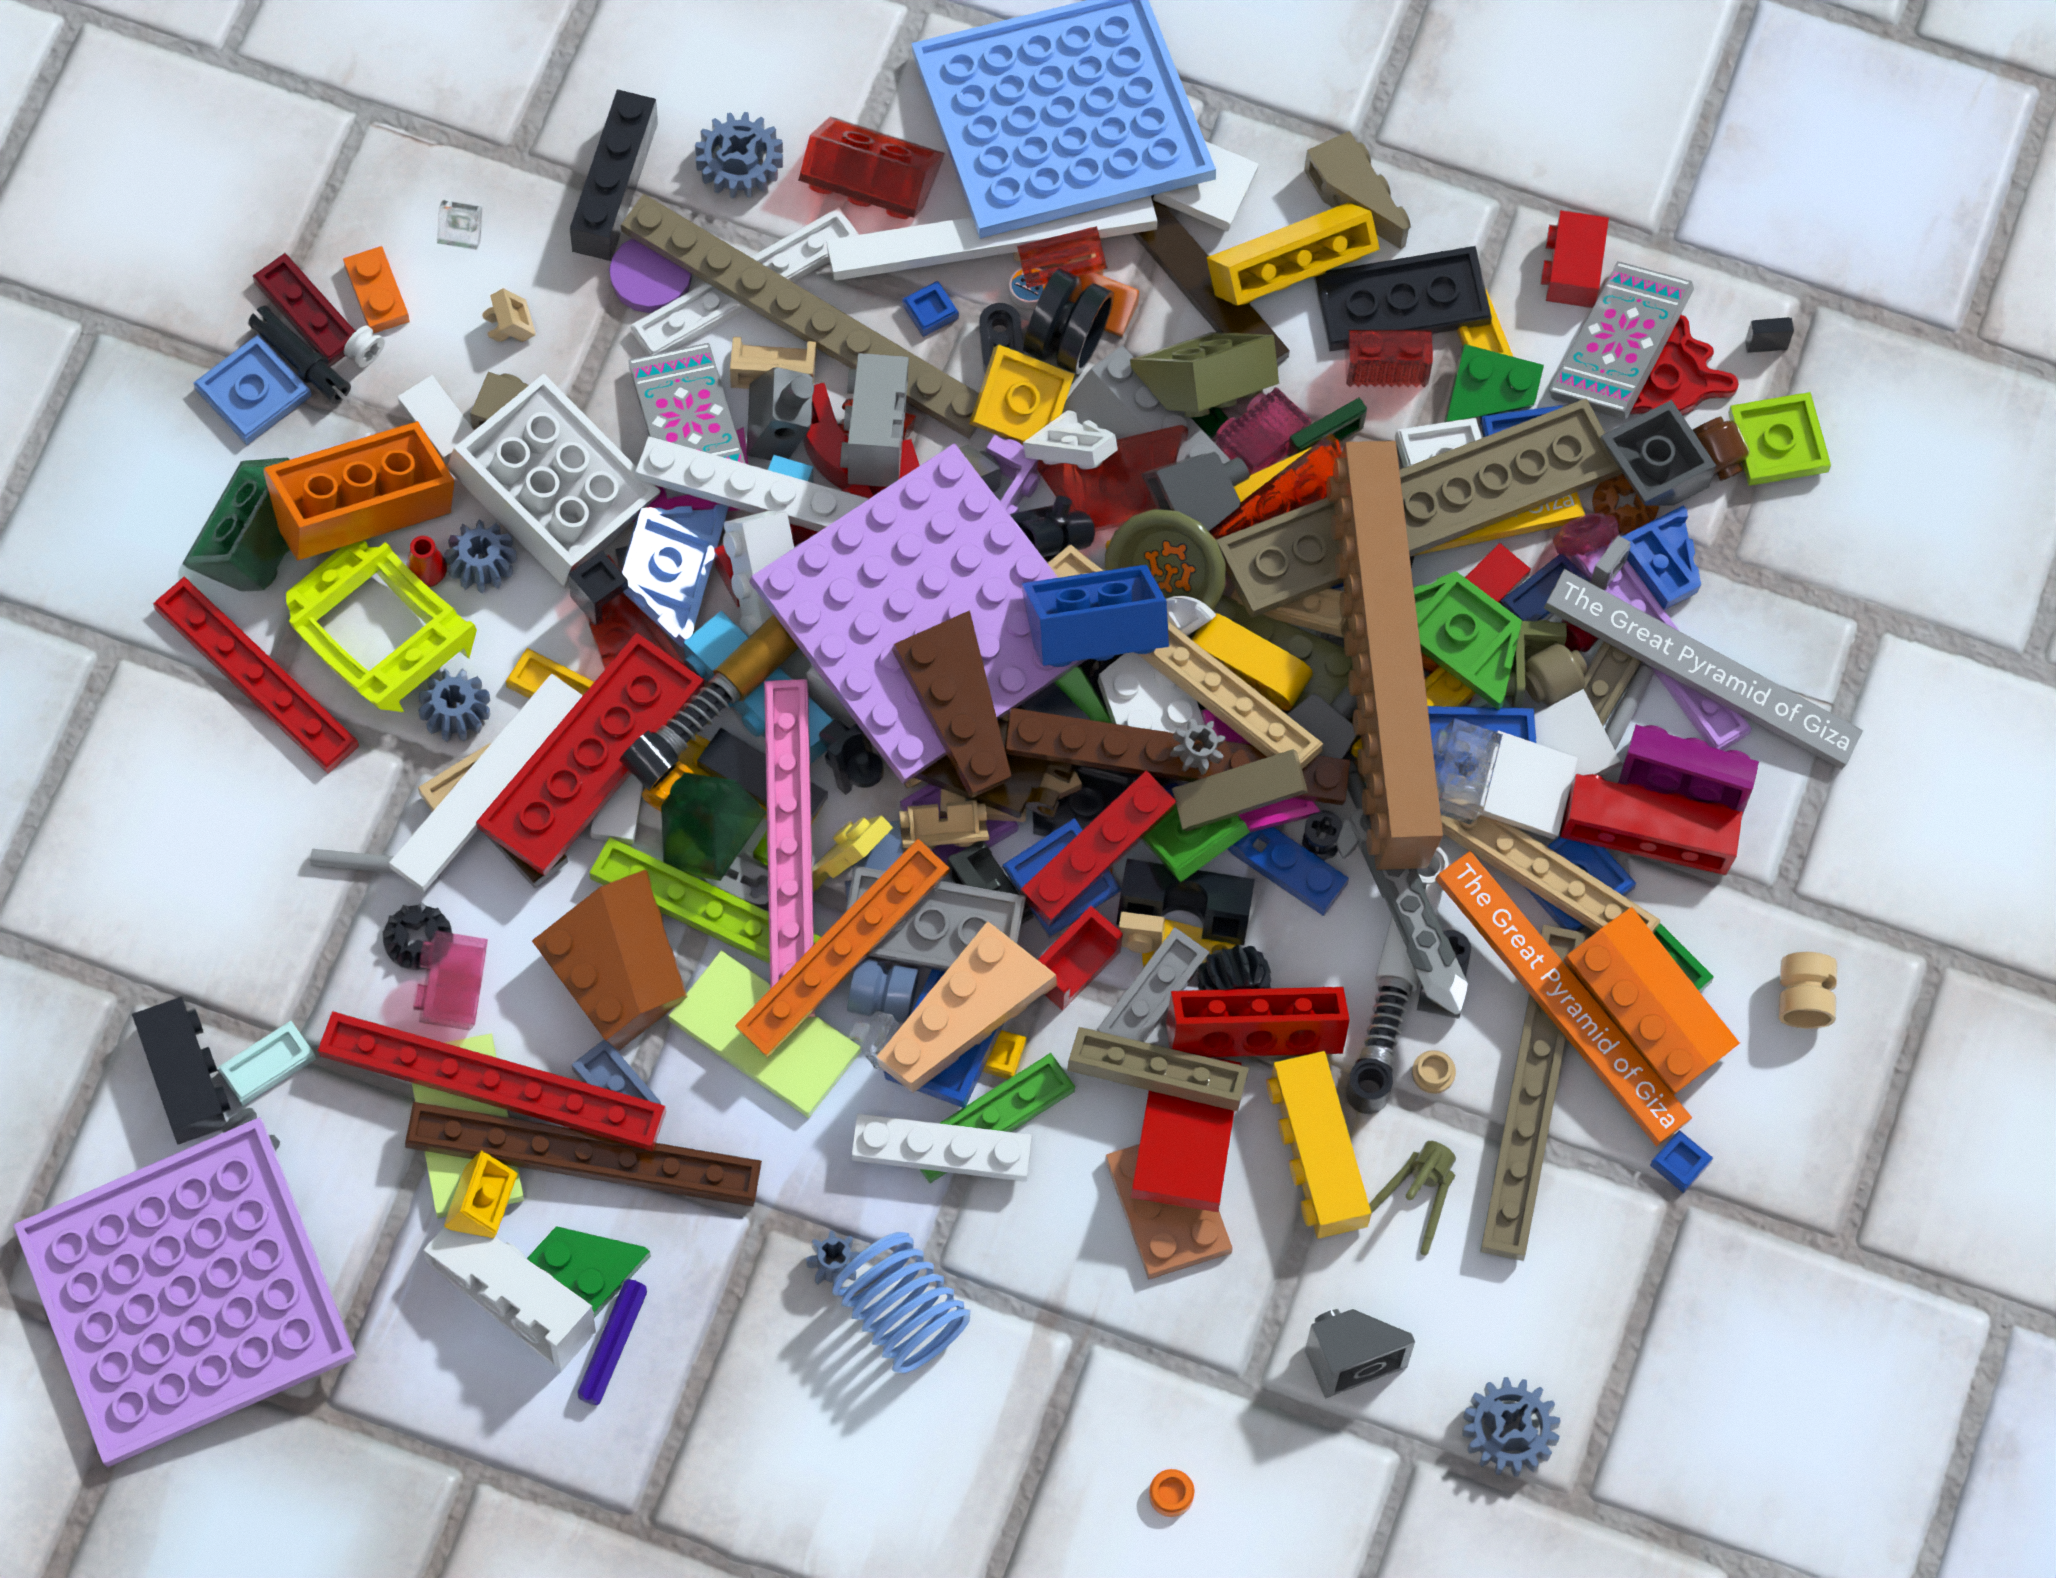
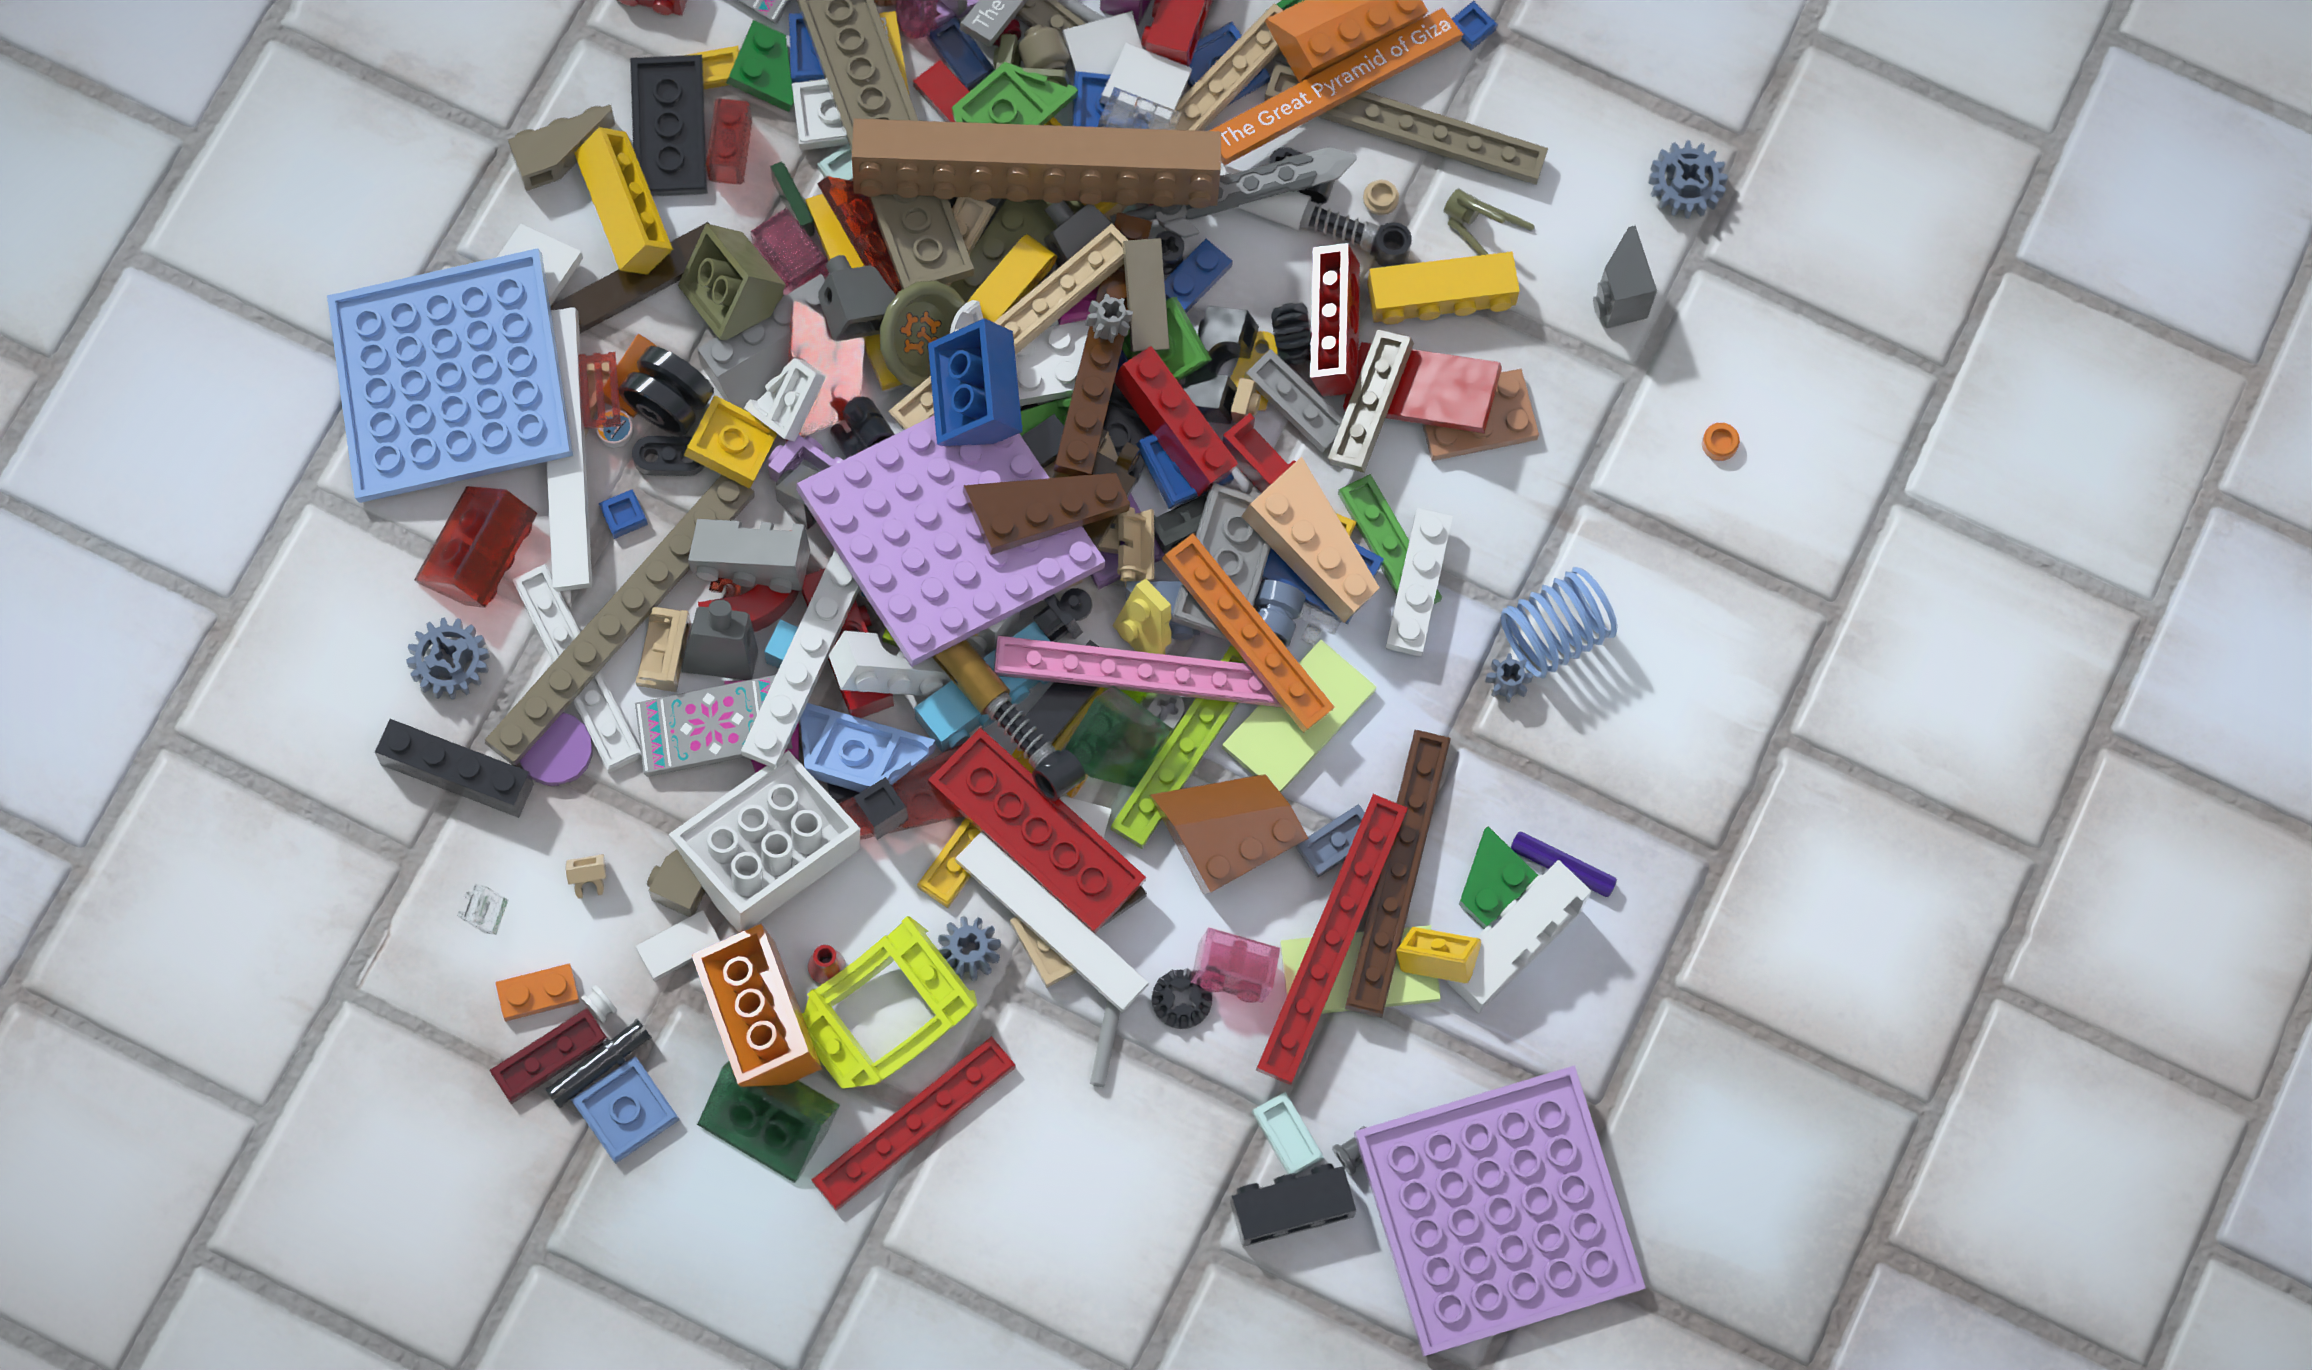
camera: 85 degrees left, 5 degrees up
(477, 542) = (816, 925): sand blue gear -> none

